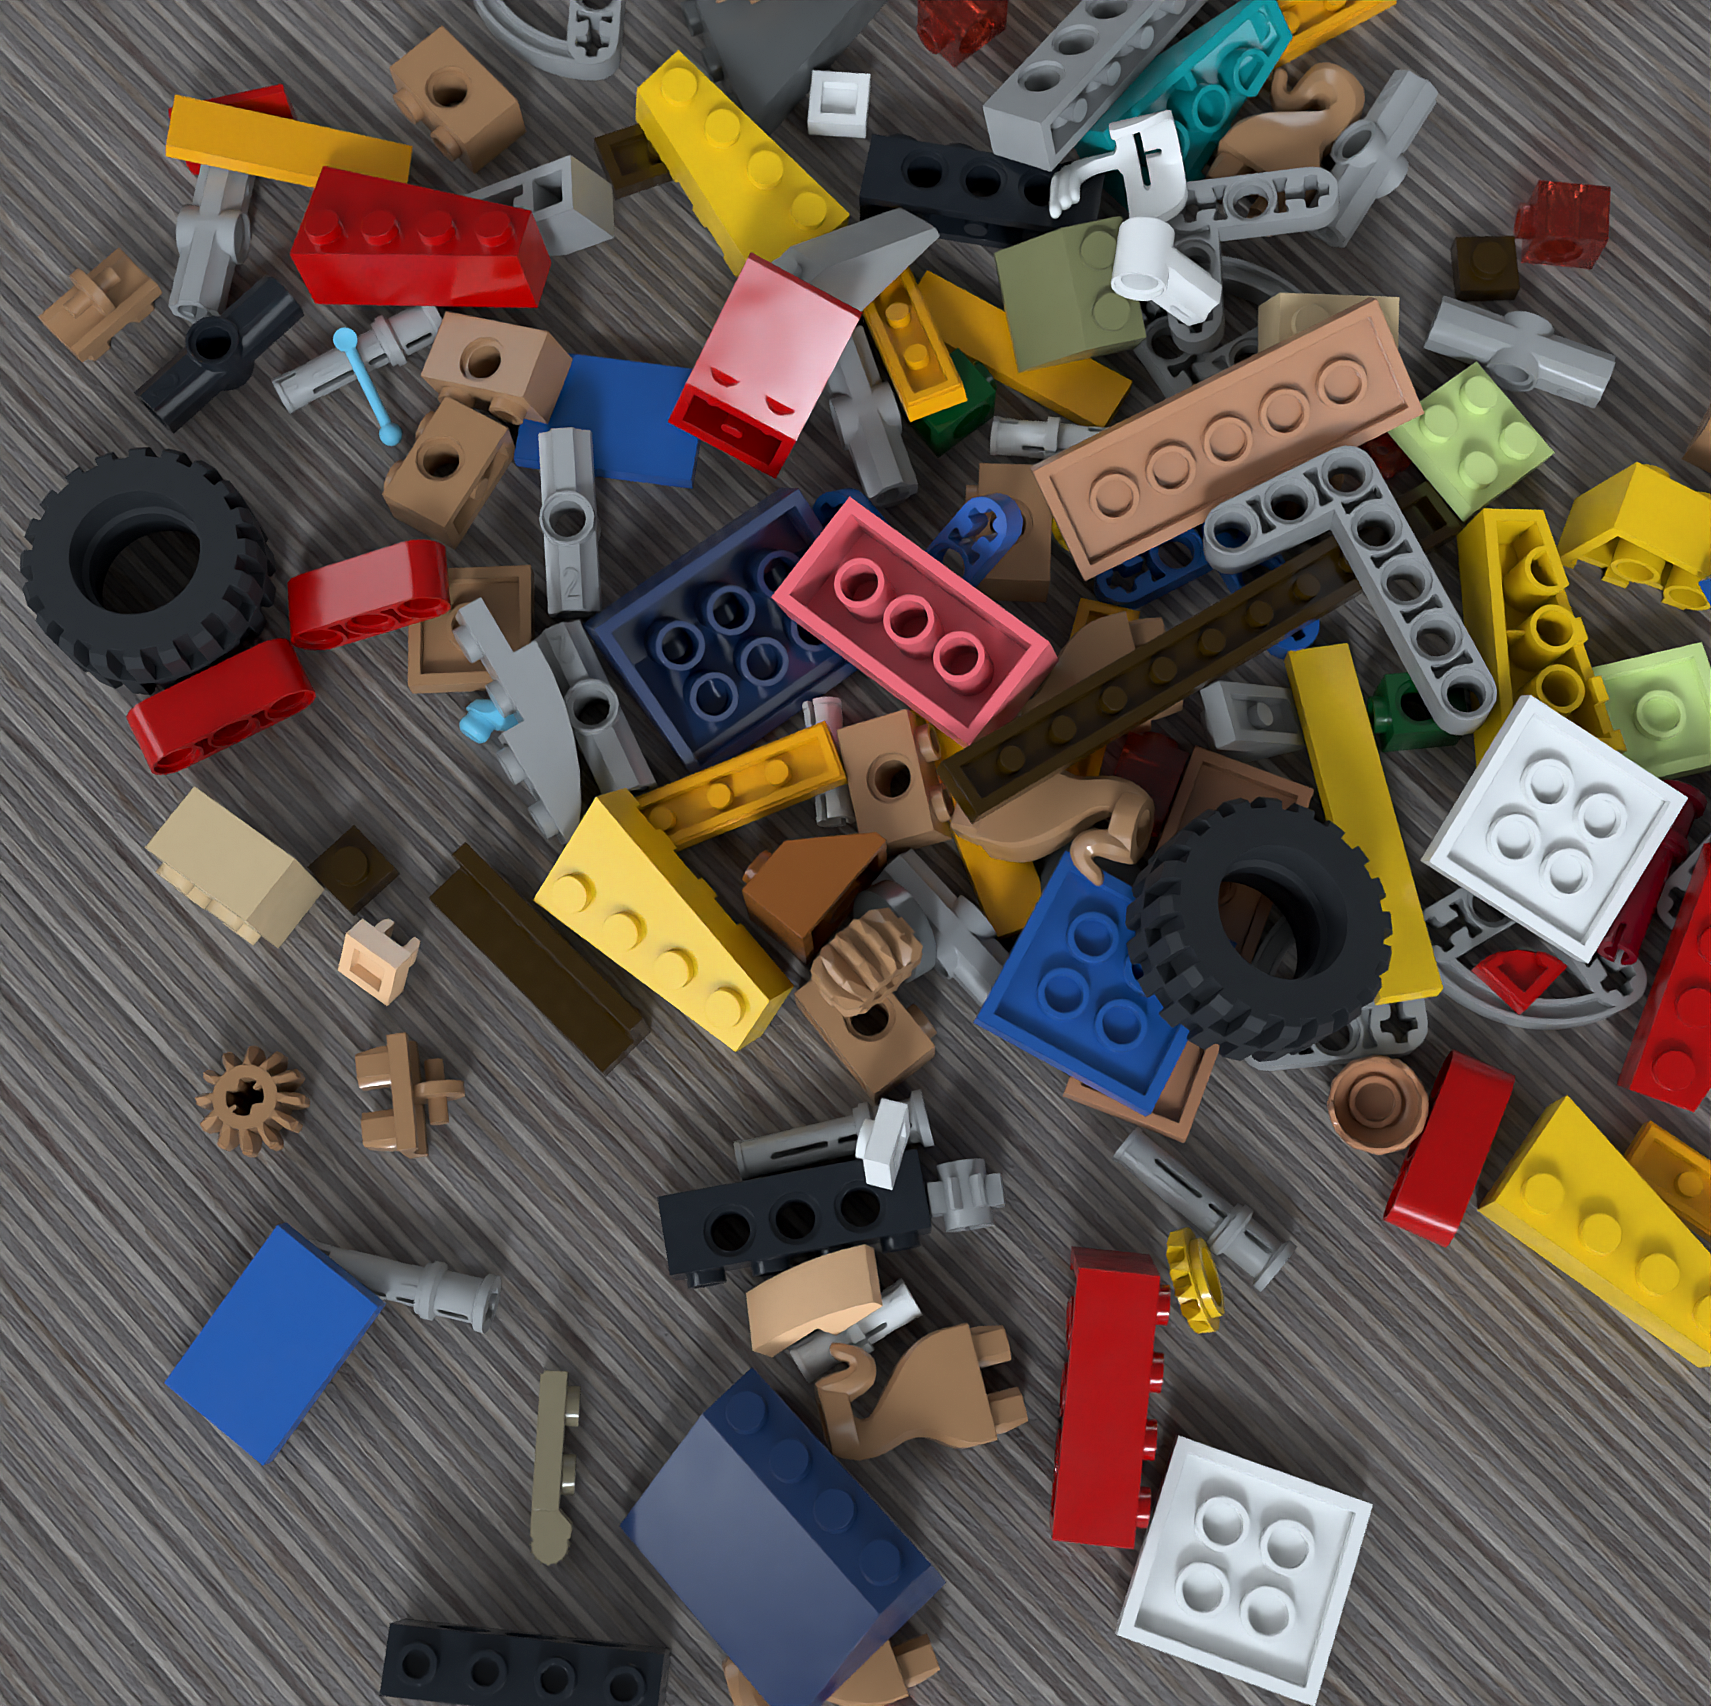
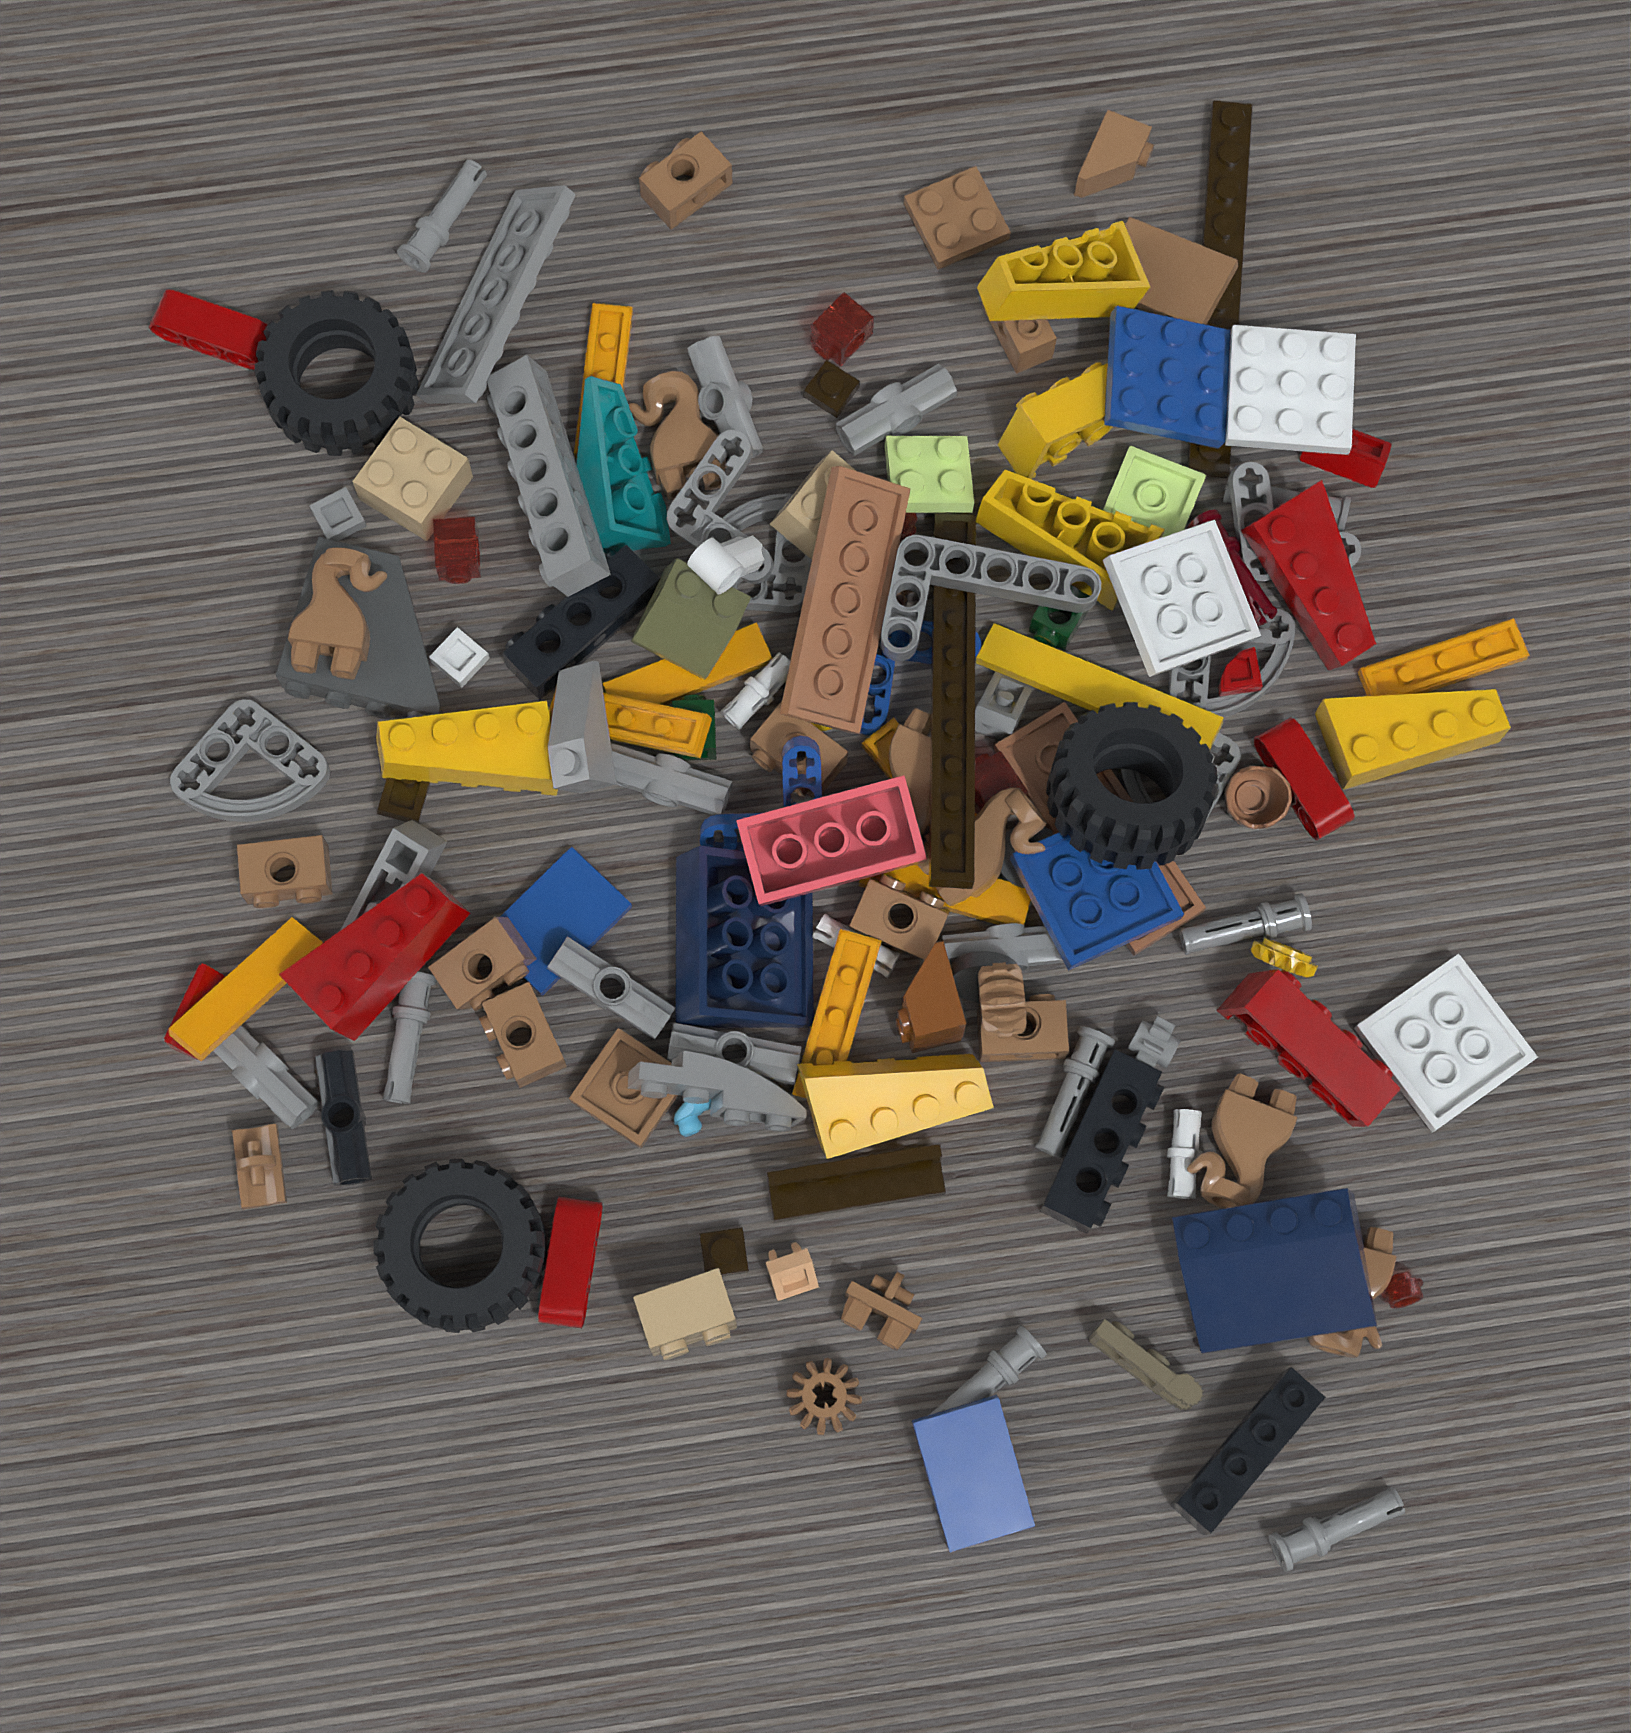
camera: 60 degrees left, 0 degrees up
(347, 341) = (400, 1037): medium azure hinge -> none
(369, 595) = (571, 1130): red beam -> none
(764, 365) = (612, 814): slope -> none
(814, 1295) = (1153, 1162): light nougat slope -> none
(883, 1143) = (1103, 1062): white plate -> none
(1168, 185) = (667, 535): white helmet -> none

